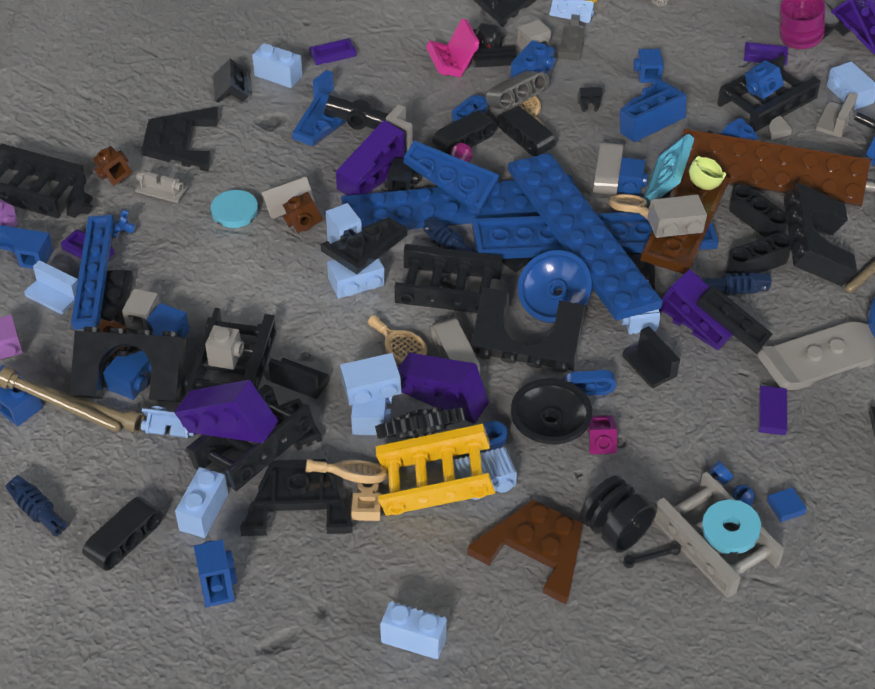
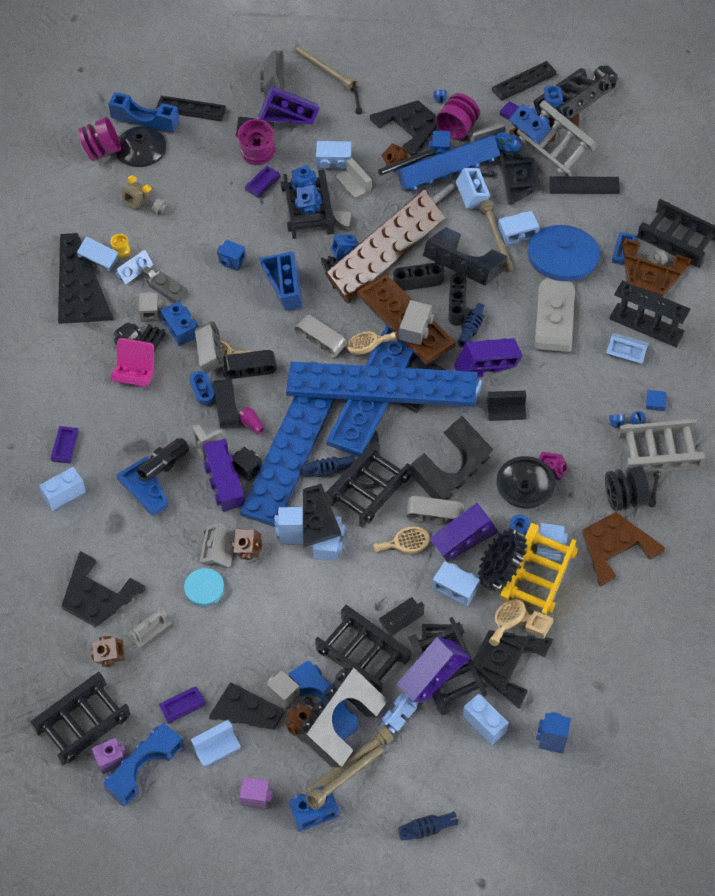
camera: 60 degrees left, 10 degrees up
(78, 201) = (128, 692): black tile -> none
(93, 272) = (223, 706): blue plate -> none
(122, 533) = (483, 779): black beam -> none
(123, 224) = (174, 670): blue plant -> none
(224, 347) = (364, 647): light grey brick -> none
(230, 79) = (54, 531): black panel -> none
(323, 83) = (106, 467): blue tile -> none
(370, 379) = (449, 570): light blue brick -> none
(413, 630) = (649, 640): light blue brick -> none
(455, 176) = (277, 430): blue wing -> none
(549, 273) = (432, 424): blue dish -> none
(589, 95) = (239, 307): black tile -> none
(593, 382) = (510, 446): blue plate -> none
(632, 176) = (340, 324): blue brick -> none
(669, 169) = (352, 302): medium azure tile -> none
(706, 173) = (383, 284): yellowish green hair -> none
(731, 512) = (671, 426): medium azure tile -> none
(734, 319) = (512, 343): black tile -> none
(773, 410) = (583, 366): dark purple tile -> none
(790, 66) = (303, 177): none -> blue brick
(838, 442) = (627, 348): none -> light blue panel

